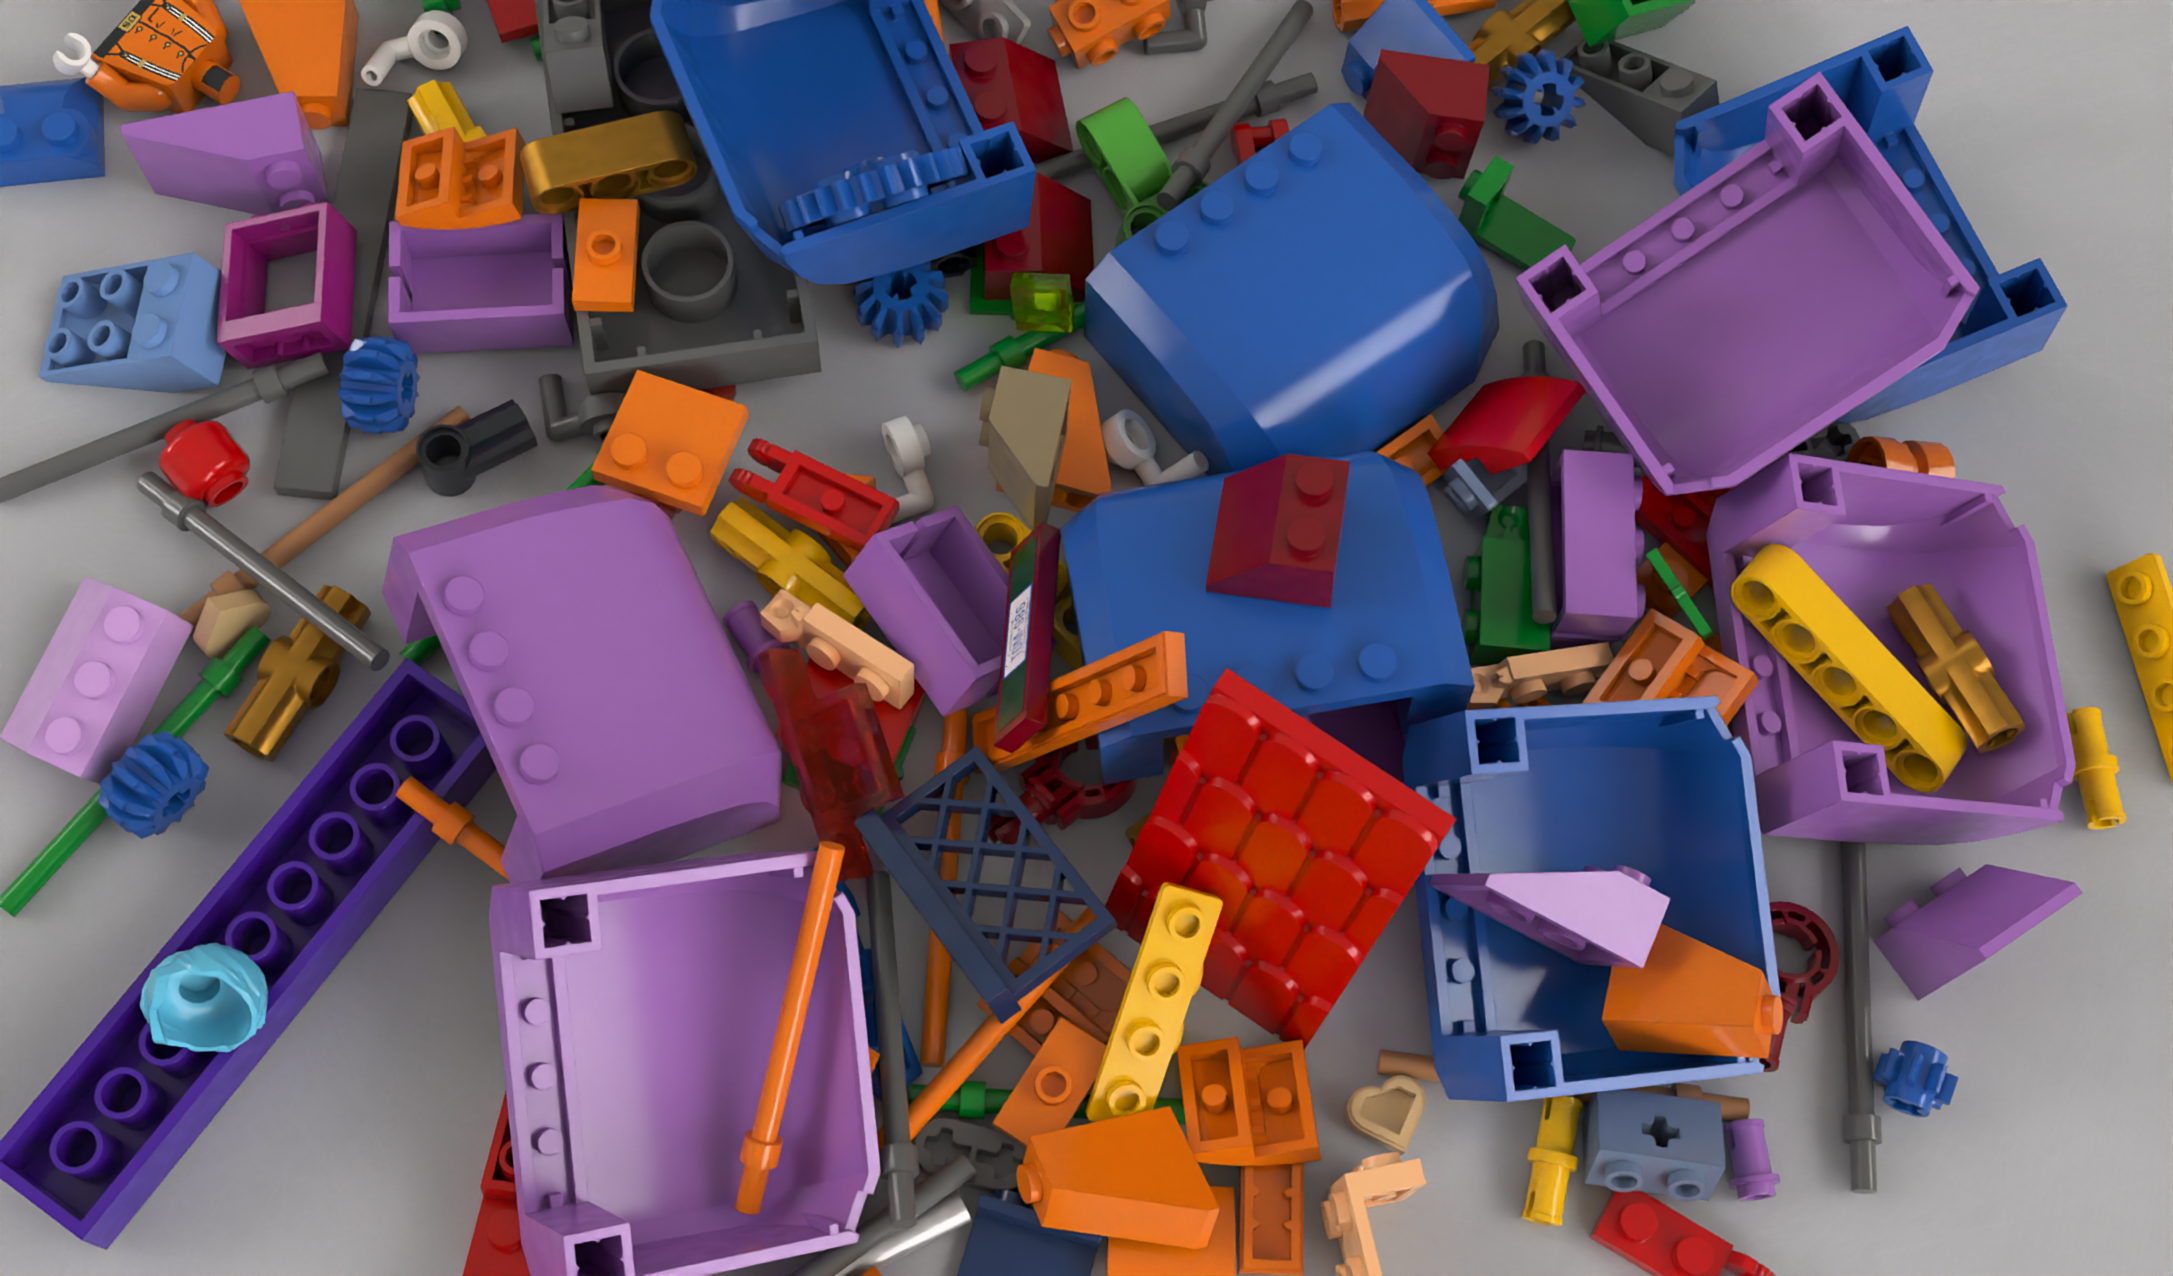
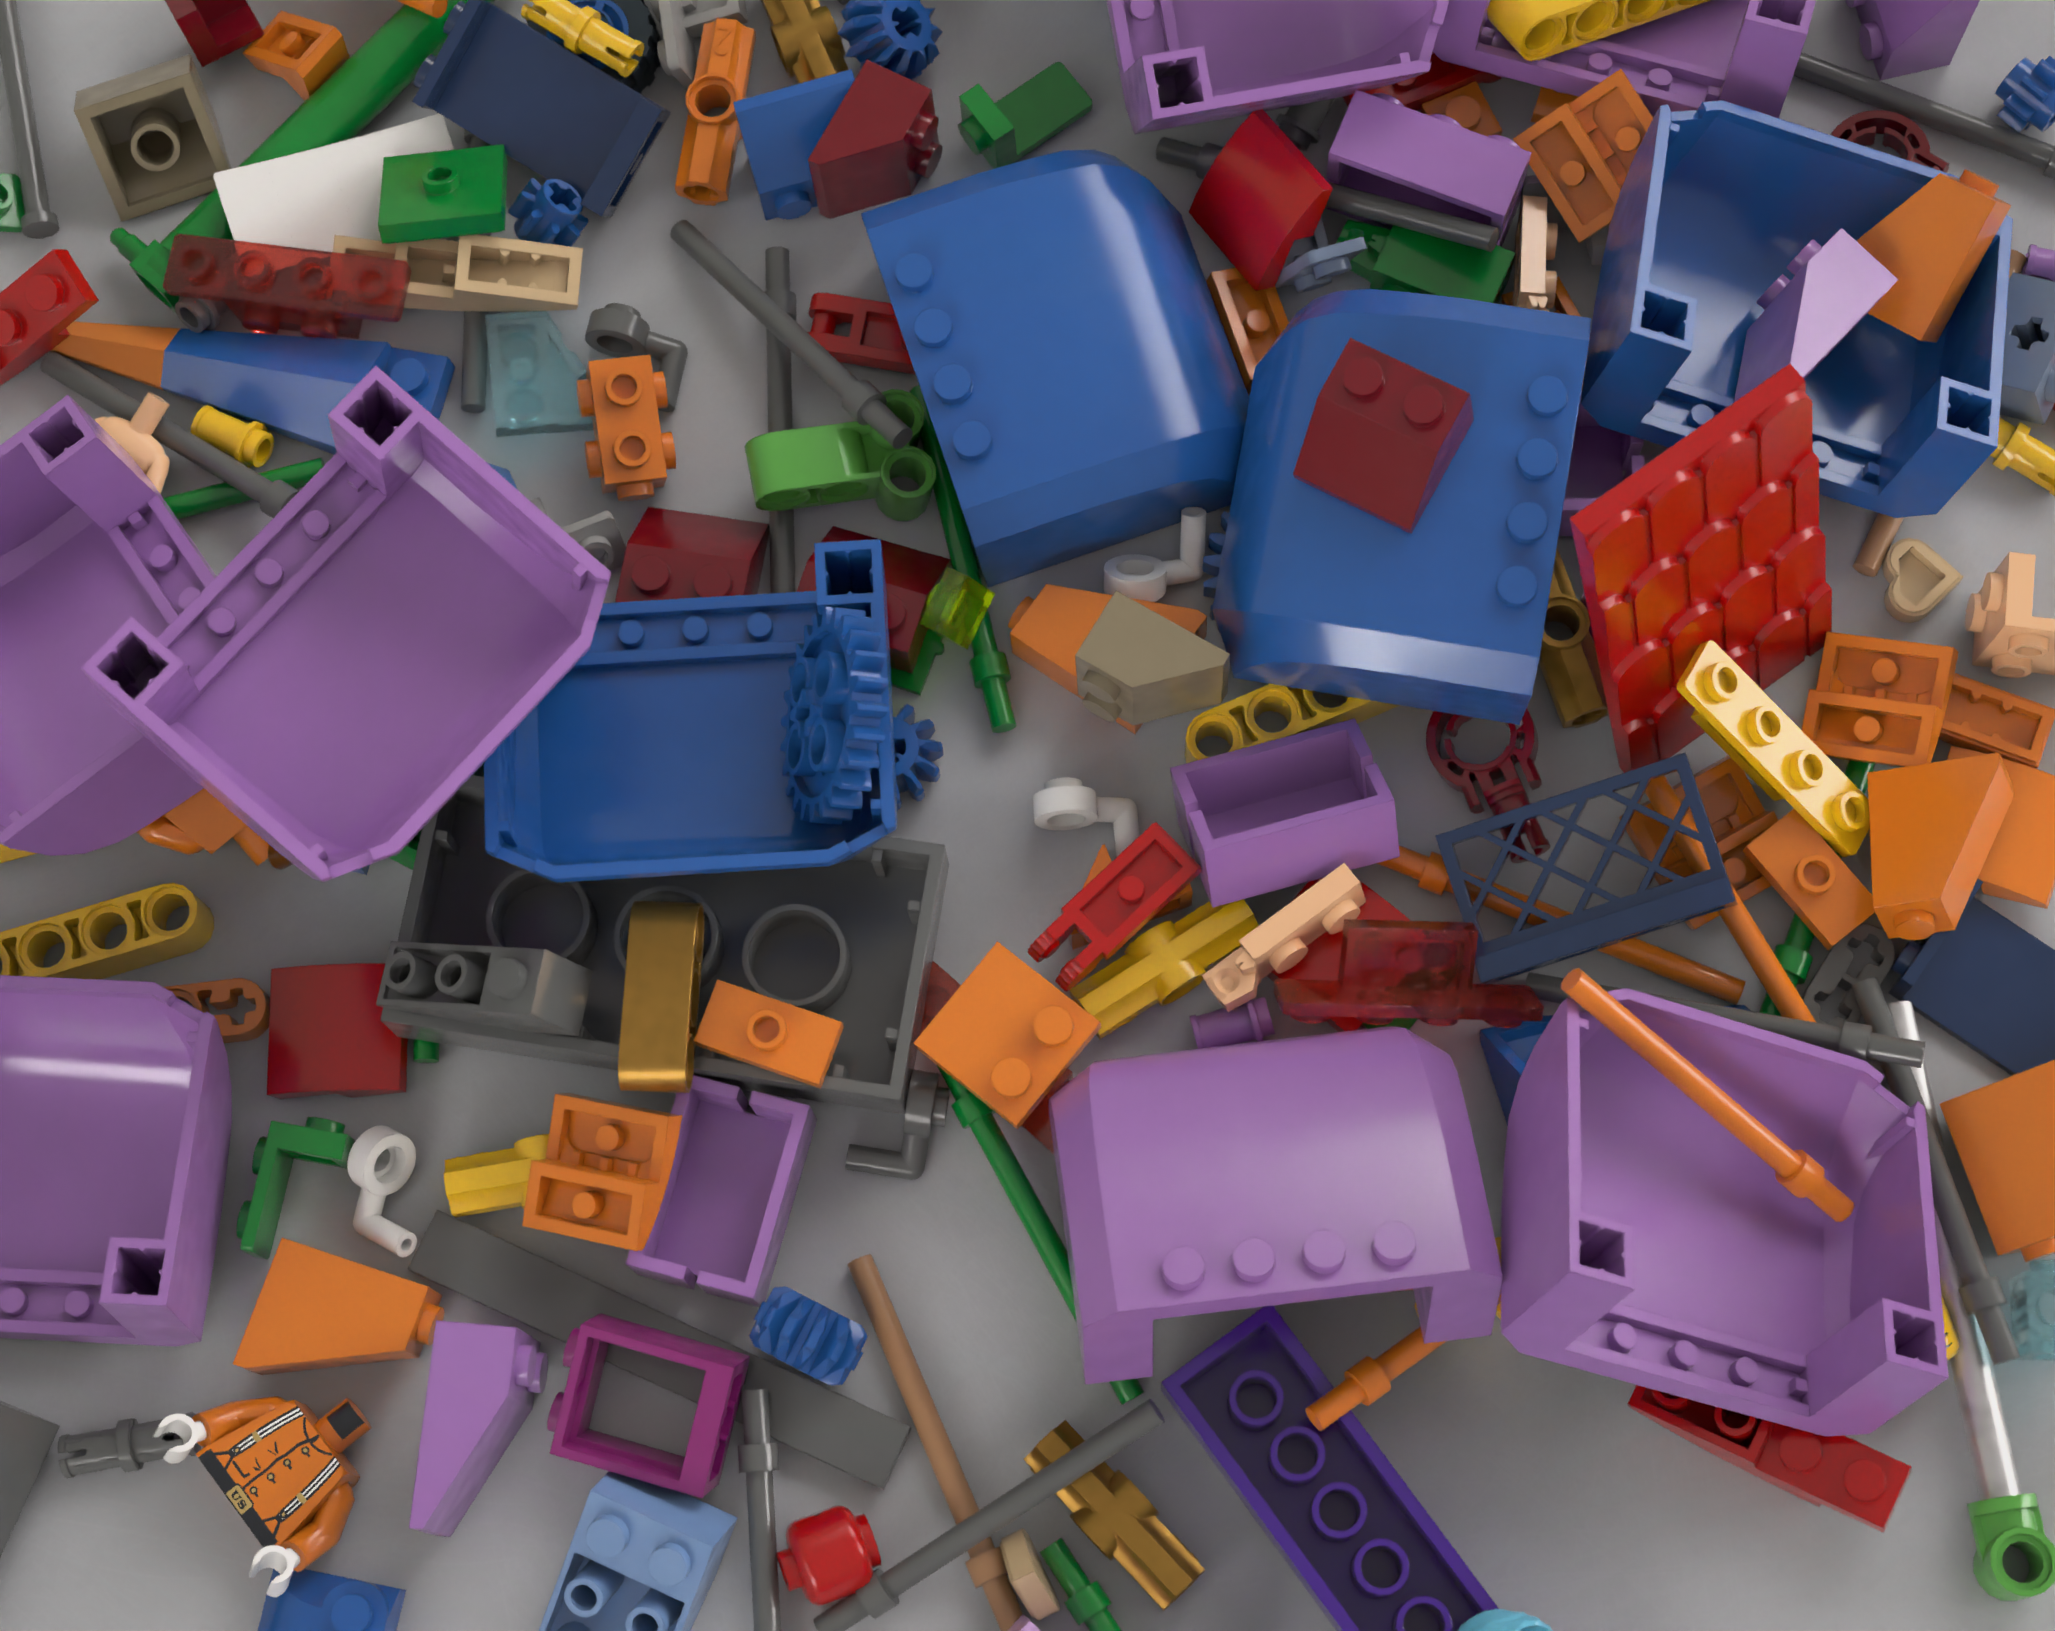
camera: 55 degrees left, 5 degrees up
(478, 444) = (909, 1250): black piece -> none
(1027, 638) = (1363, 736): dark red tile -> none
(1097, 698) = (1477, 698): orange tile -> none
(1679, 595) = (1512, 106): green piece -> none

